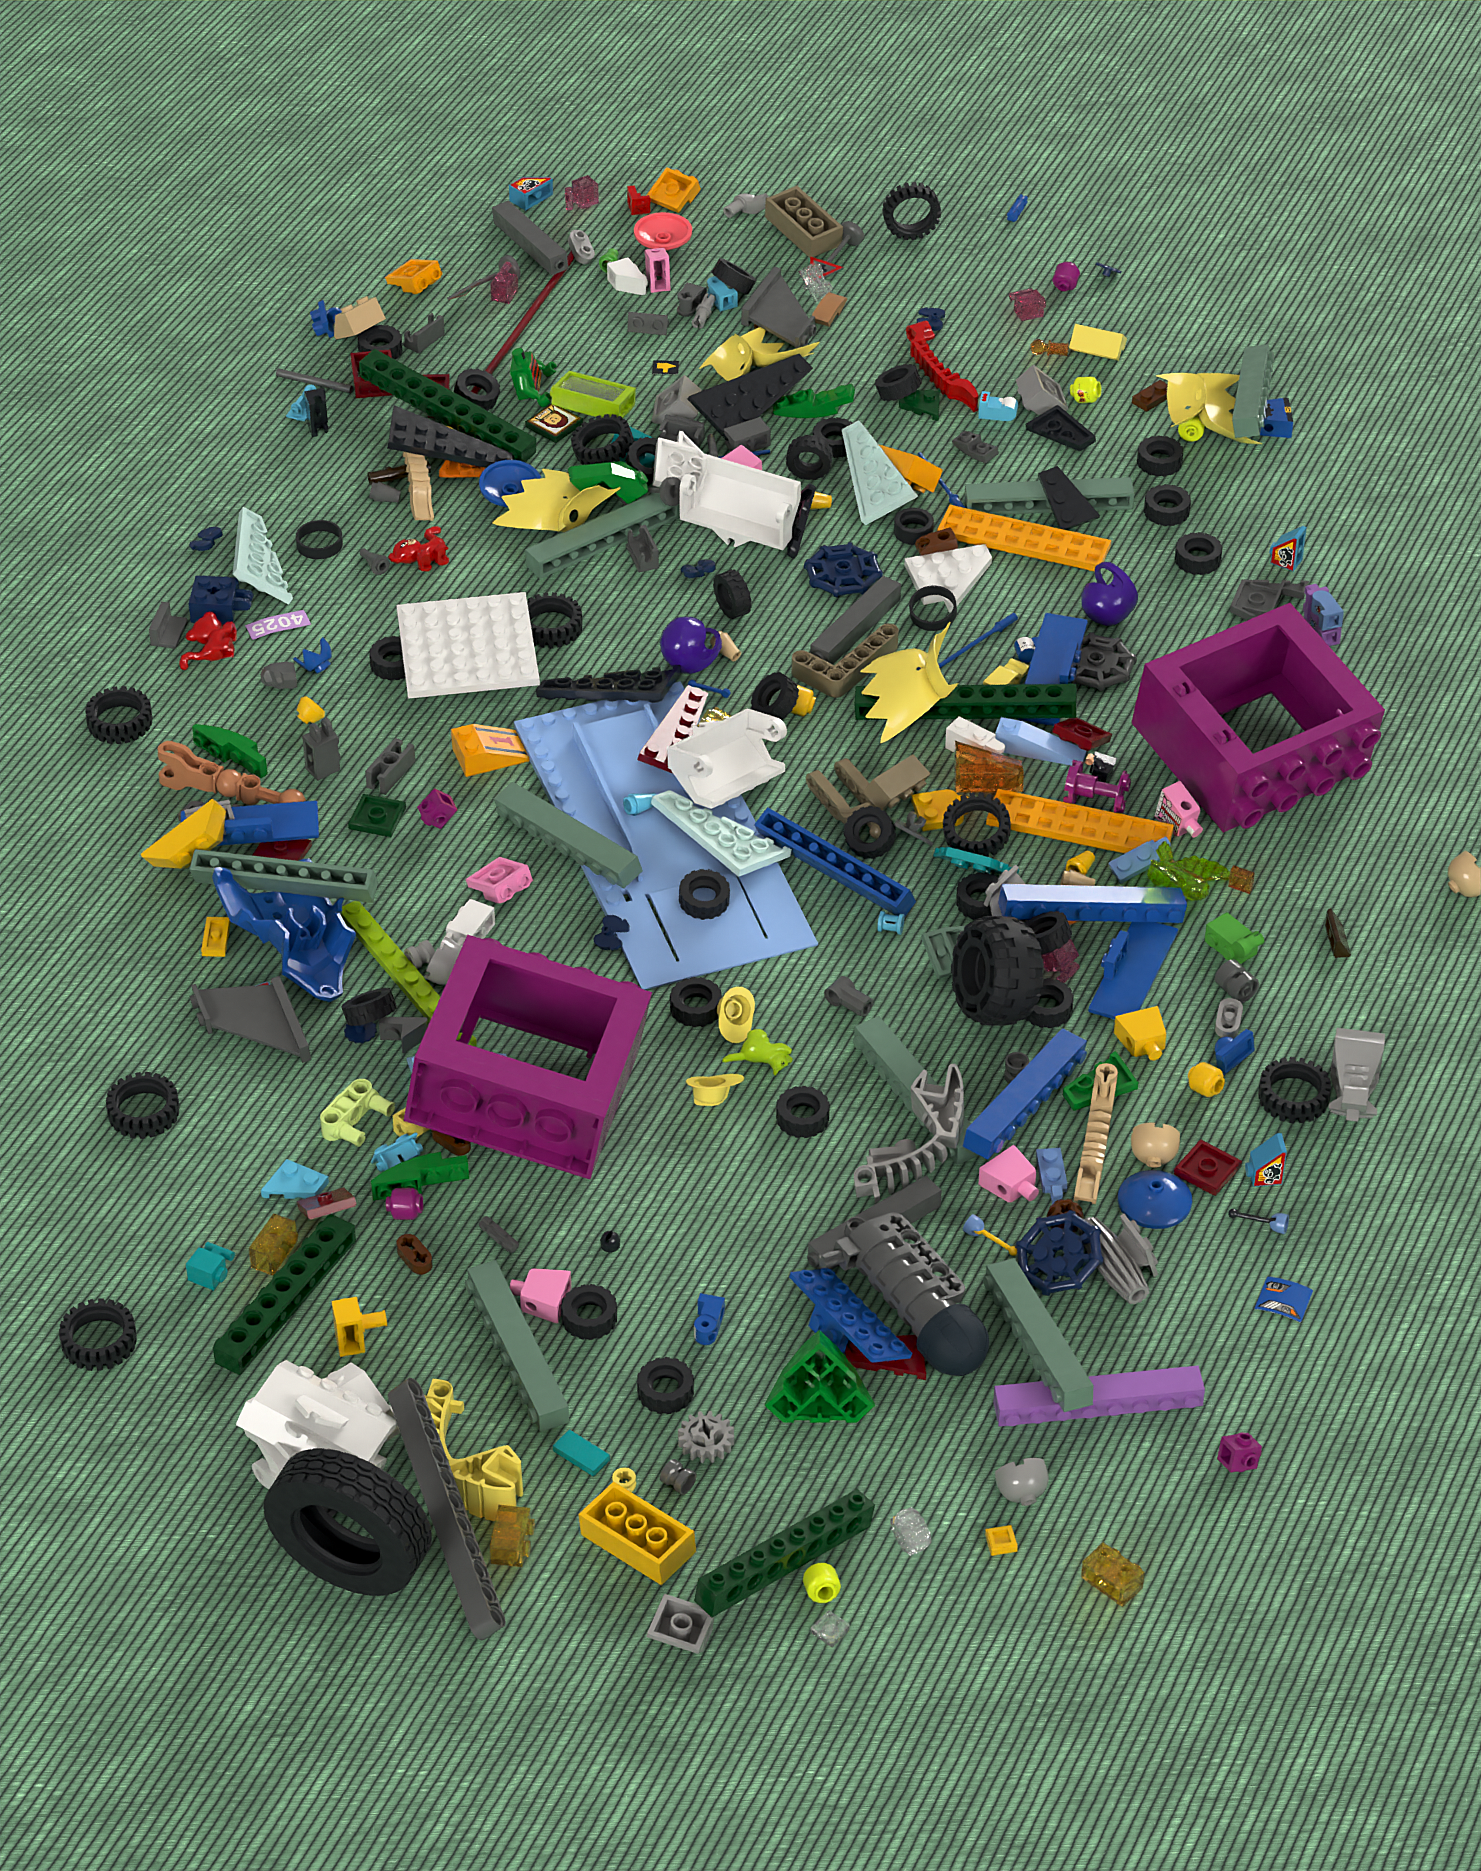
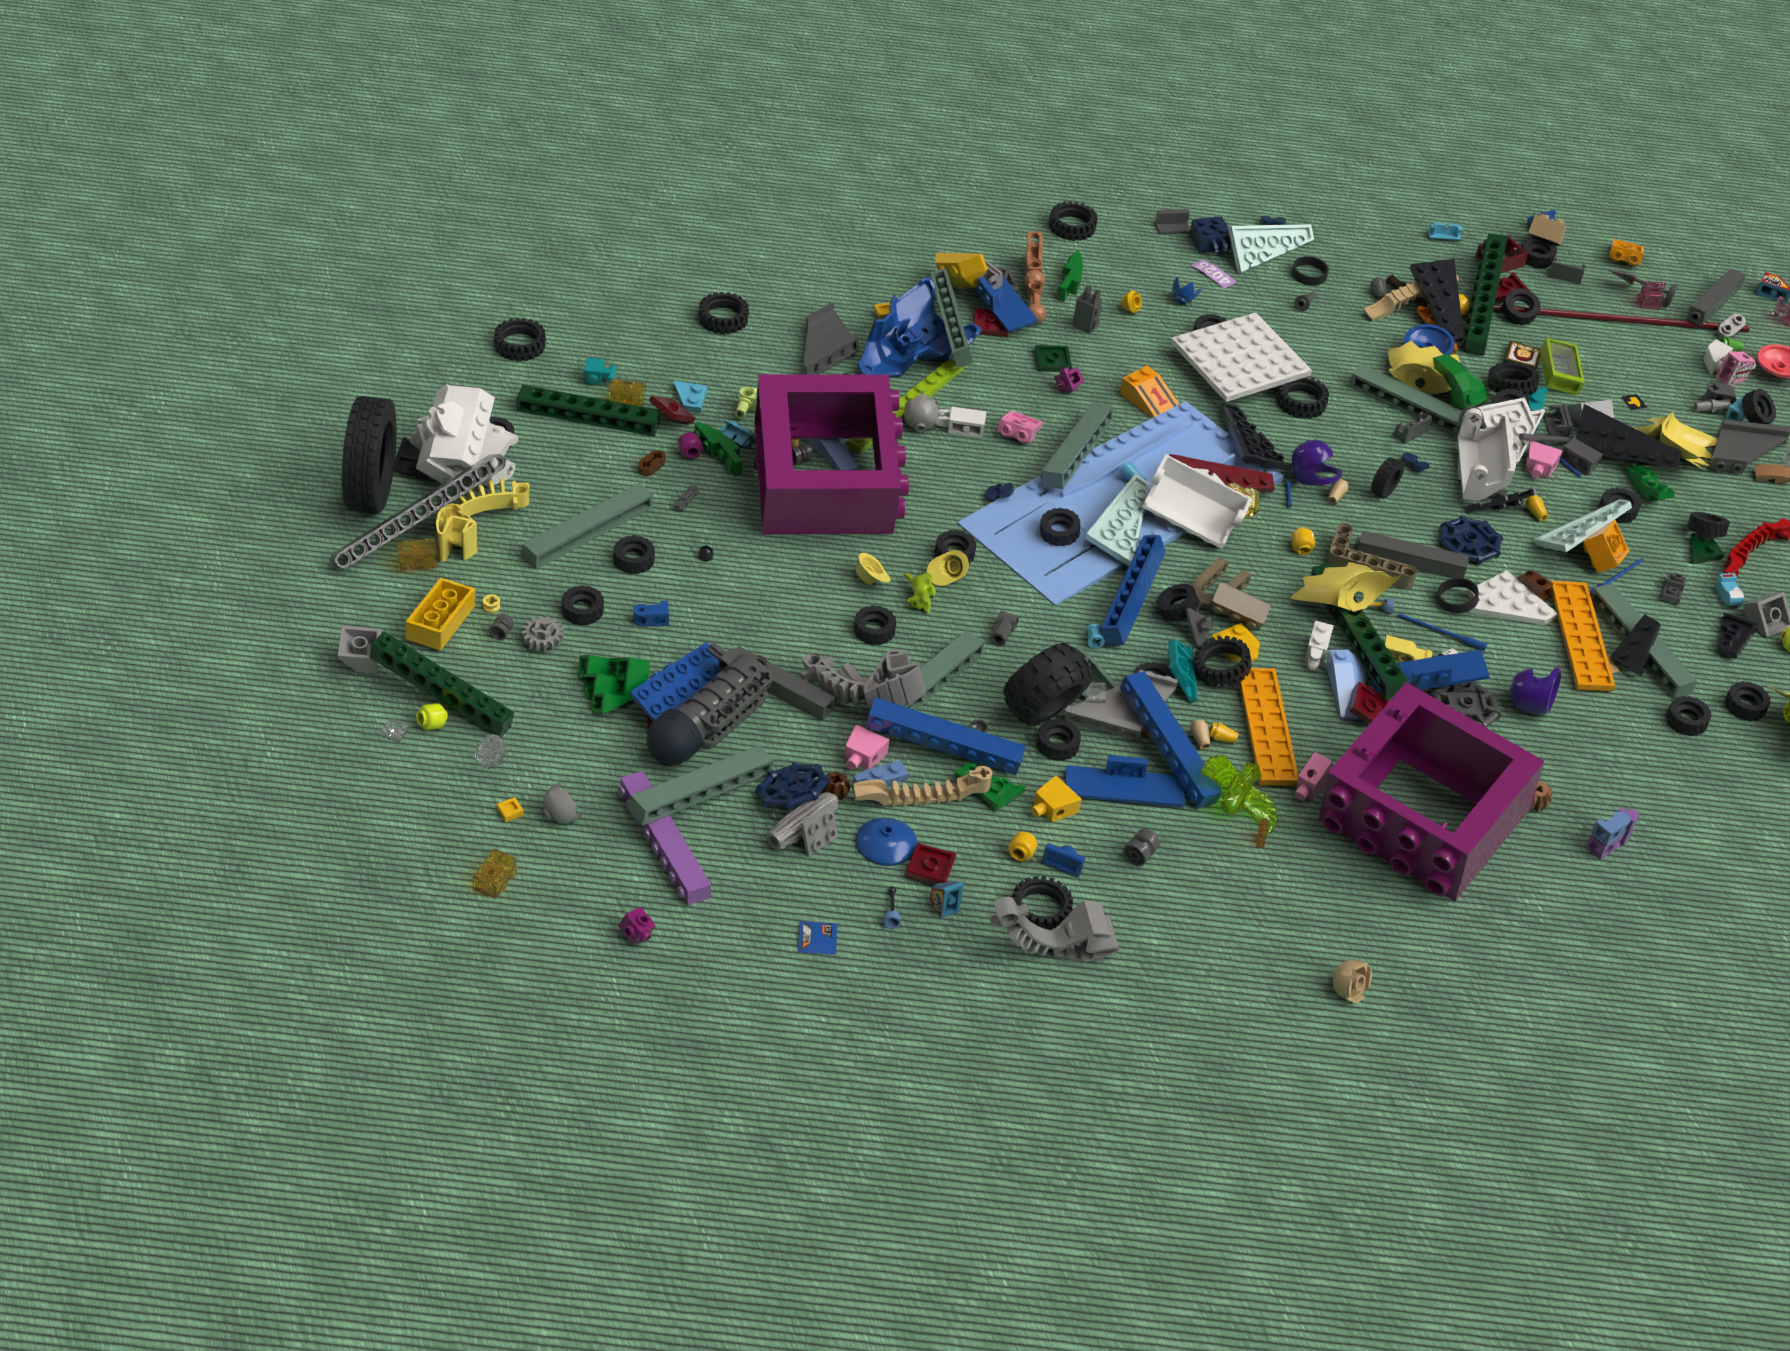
camera: 65 degrees right, 0 degrees up
(217, 640) = (1176, 242): red animal -> none
(279, 675) = (1157, 282): dark grey rock -> none
(314, 380) = (1475, 229): dark grey bar -> none
(316, 410) = (1433, 234): black hinge -> none
(351, 1325) = (565, 440): yellow brick -> none
(390, 766) = (1101, 351): dark grey piece -> none
(411, 550) = (1327, 319): red animal -> none
(527, 376) = (1558, 325): green torso -> none
(543, 1292) = (641, 524): bright pink torso -> none
(581, 1453) = (508, 578): teal tile -> none
(647, 323) = (1672, 380): dark grey hinge -> none
(767, 688) = (1290, 522): black tyre -> none
(811, 444) = (1574, 489): black tyre -> none
(912, 516) = (1551, 560): black tyre -> none
(975, 1226) = (805, 739): hinge -> none
(985, 771) = (1285, 653): clear orange wedge -> none
(1050, 930) = (1113, 711): black tyre -> none
(1062, 961) = (1105, 732): clear pink brick -> none
(1088, 785) = (1304, 710): magenta piece -> none
(1101, 766) = (1333, 724): black piece -> none
(1136, 860) = (1239, 759): medium blue hinge -> none
(1155, 1144) = (931, 824): tan cylinder -> none
(1196, 564) = (1646, 735): black tyre -> none
(1228, 1018) = (1101, 851): light grey plate -> none
(1232, 938) = (1189, 838): bright green hinge -> none
(1260, 596) = (1611, 792): dark grey wing -> none
(1289, 549) = (1684, 801): slope -> none
(1336, 935) = (1235, 906): dark brown slope -> none

